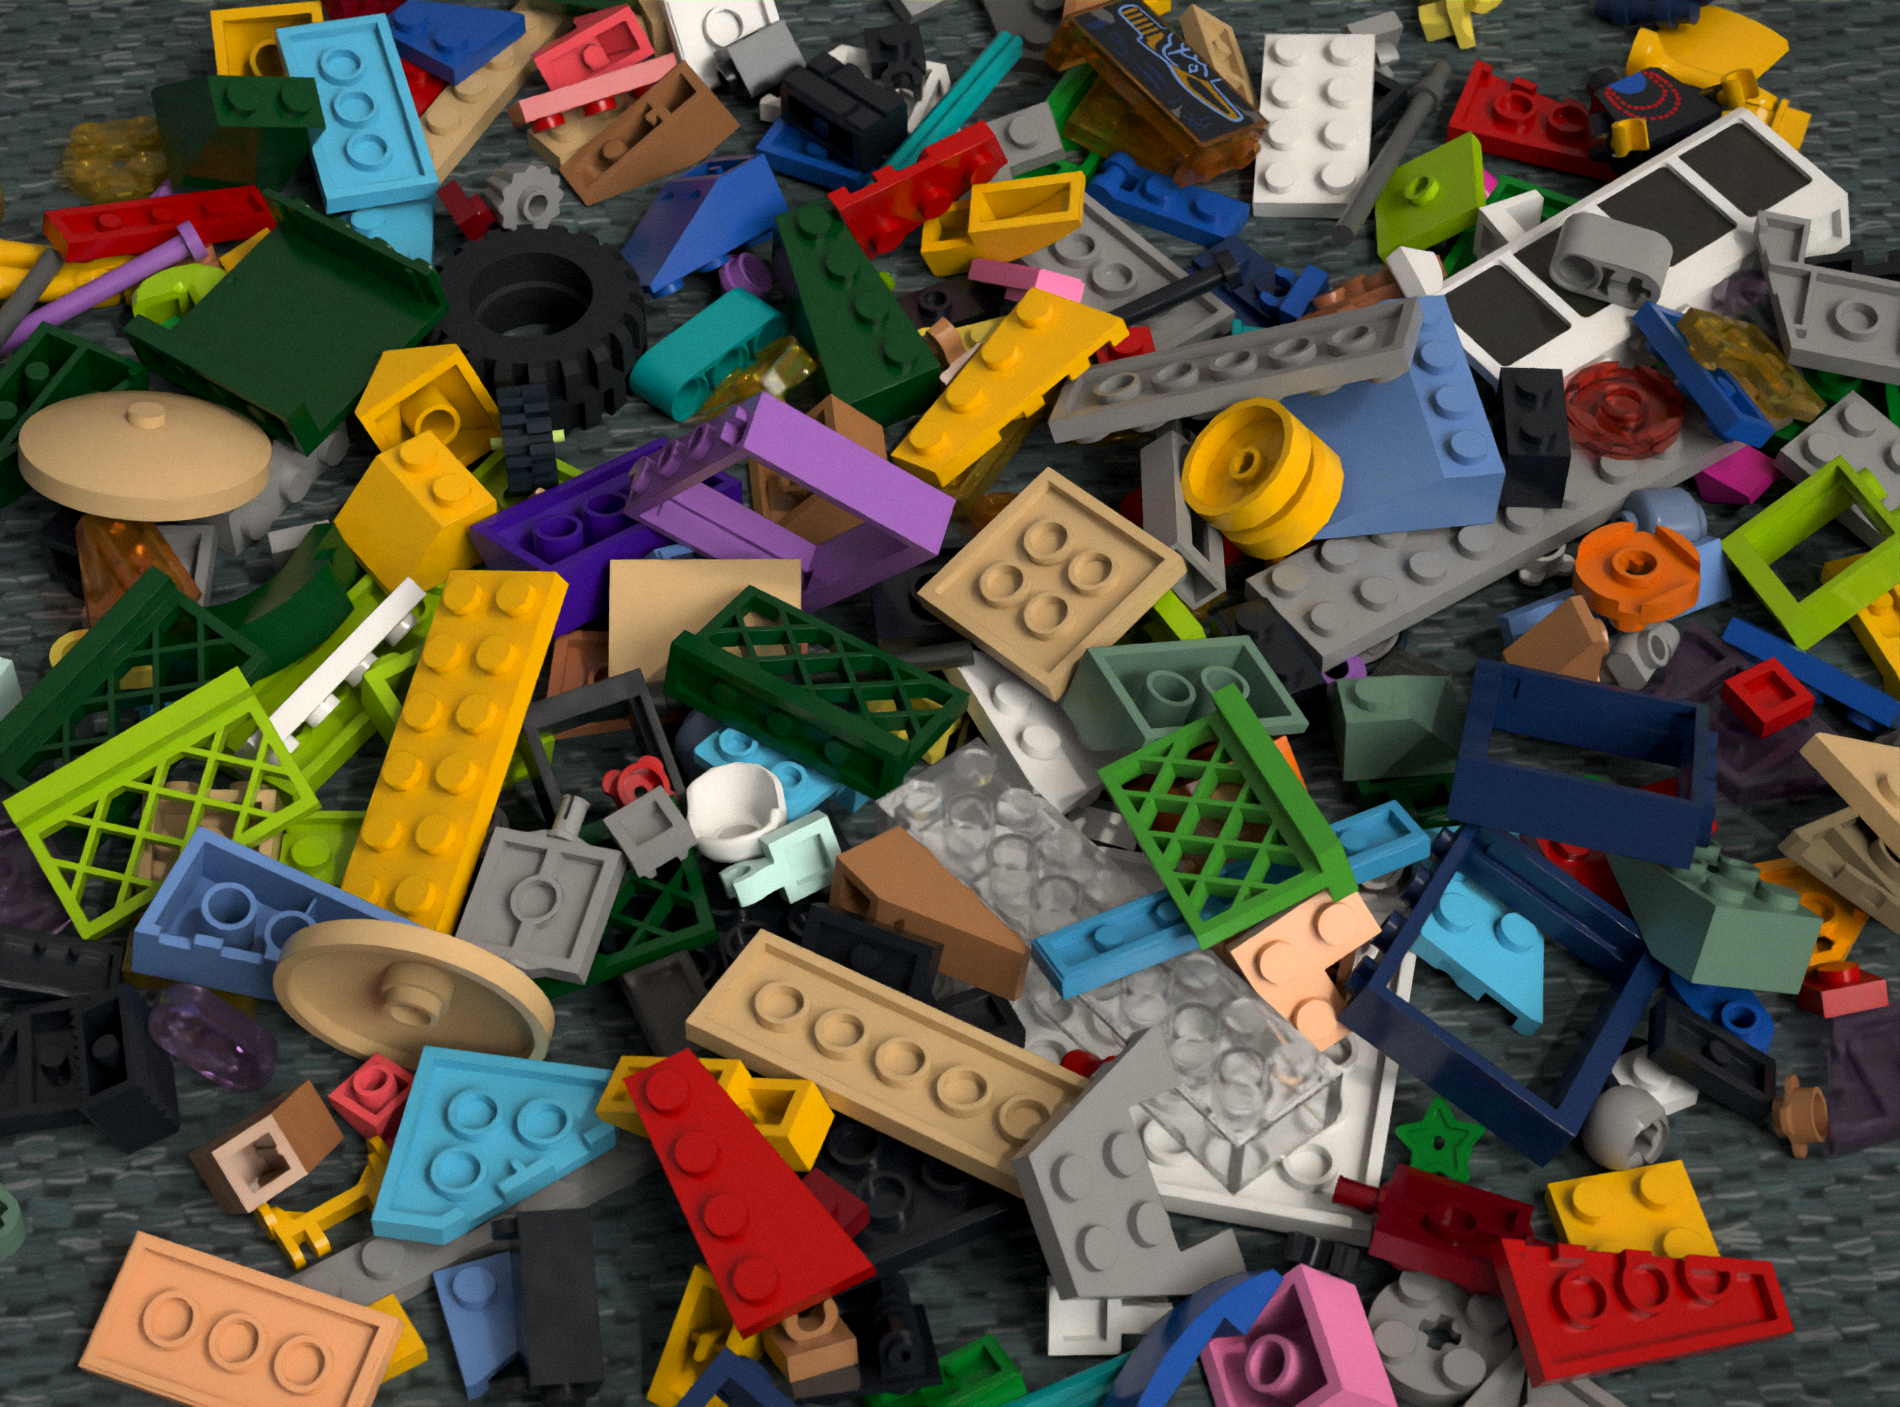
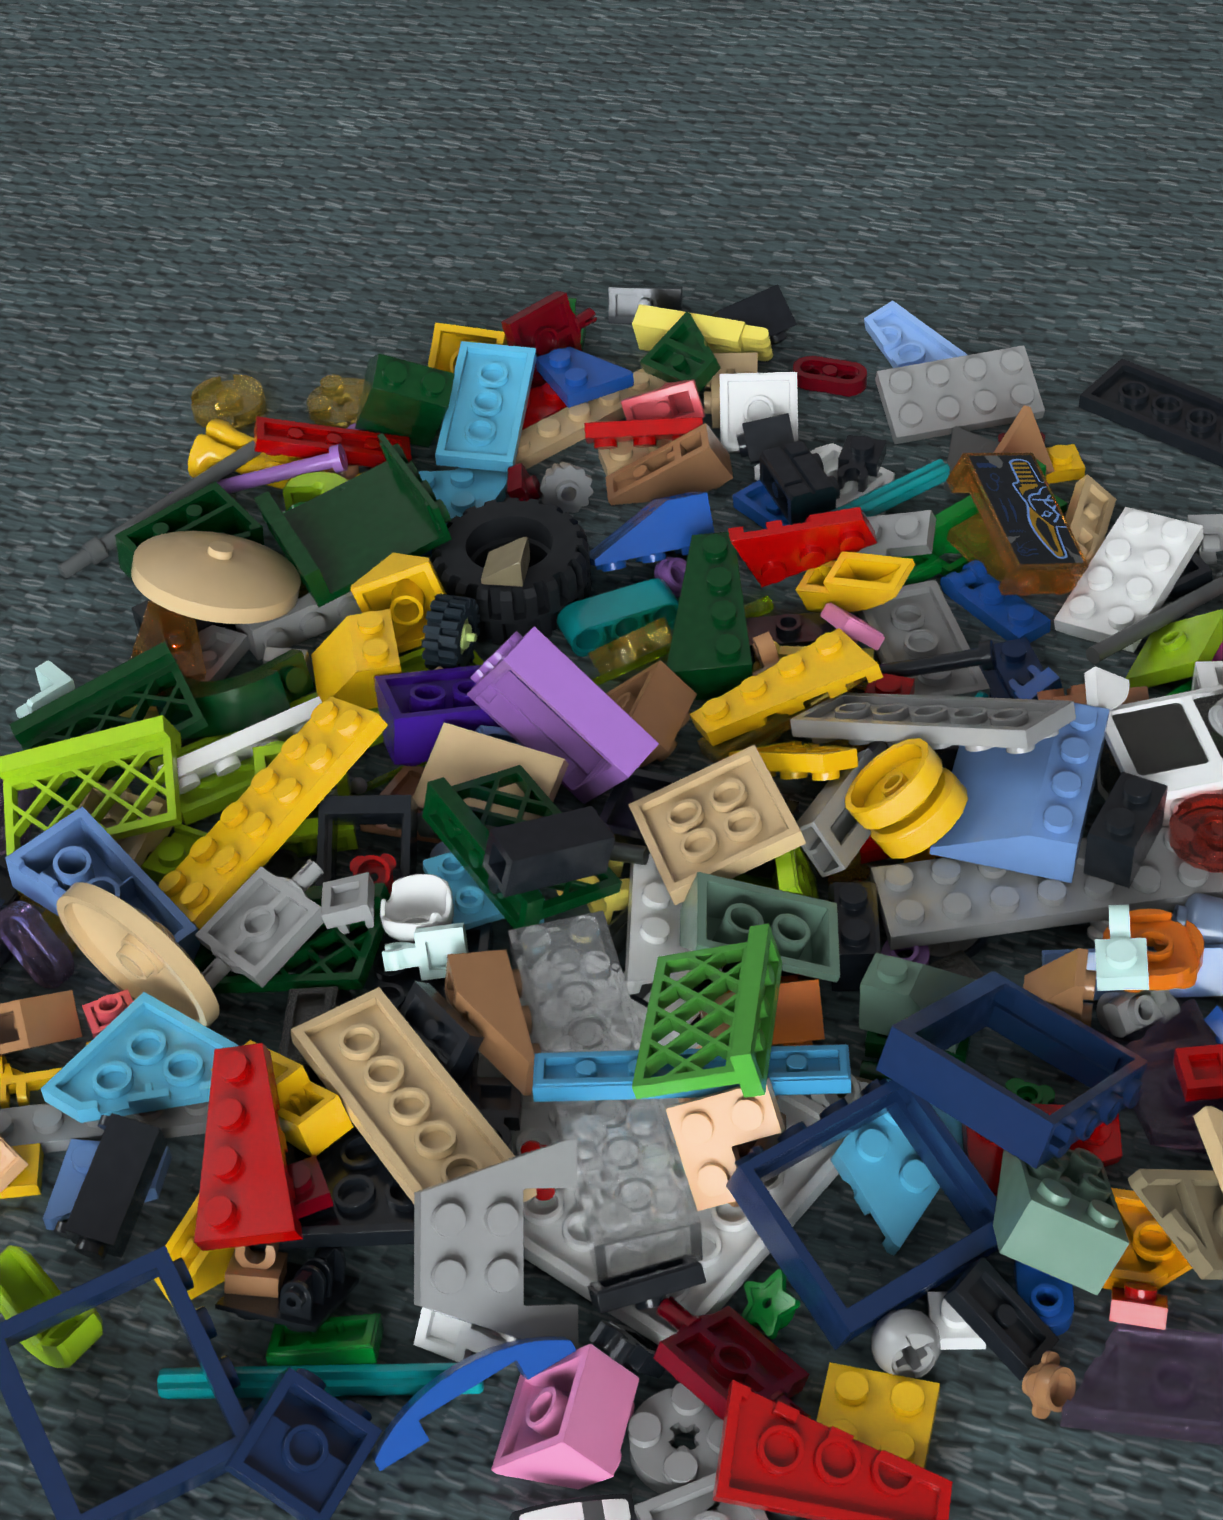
camera: 30 degrees right, 5 degrees down
(556, 322) = (507, 564): none -> dark tan slope
(888, 683) = (547, 851): none -> black brick
(1127, 461) = (798, 760): none -> yellow wing
(1304, 1172) = (646, 1285): none -> black plate
(1620, 595) = (1121, 959): none -> light aqua plate

